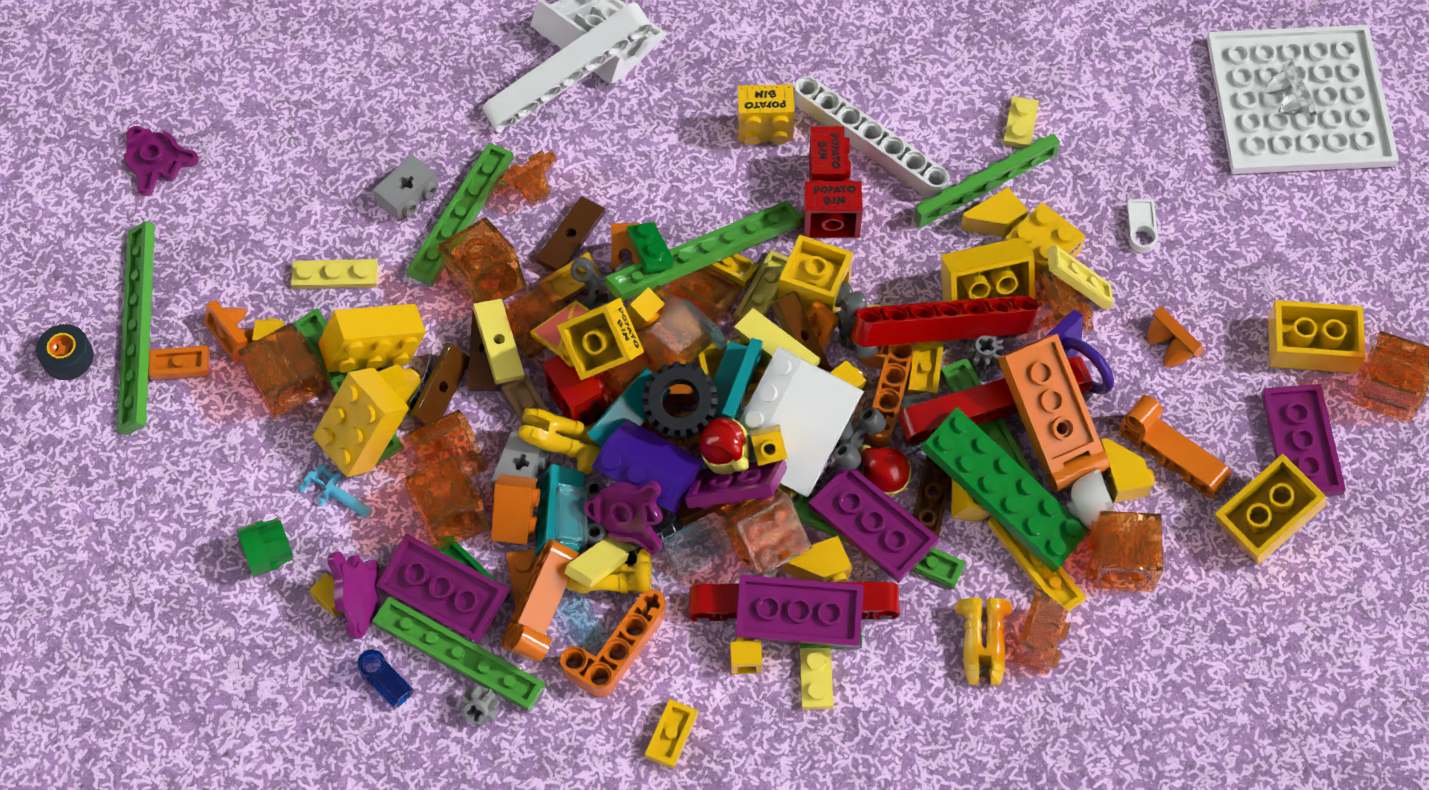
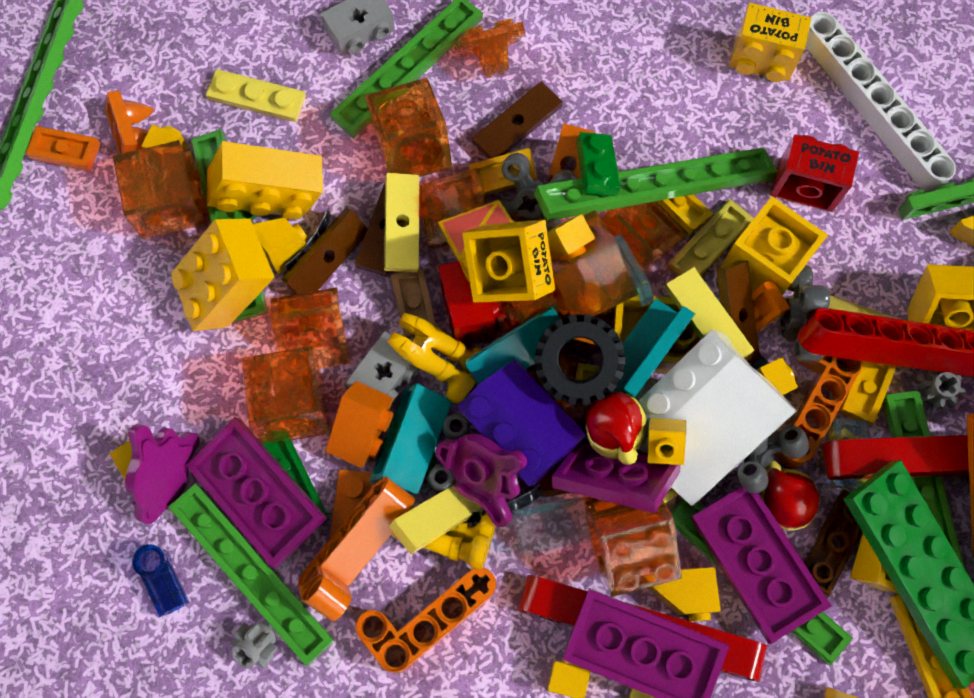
camera: 15 degrees right, 10 degrees up
(265, 546) = (78, 385): green piece -> none
(334, 491) = (177, 340): medium azure piece -> none
(570, 515) = (418, 451): clear light blue tile -> none
(583, 622) = (398, 579): clear light blue tile -> none
(829, 154) = (827, 109): red brick -> none

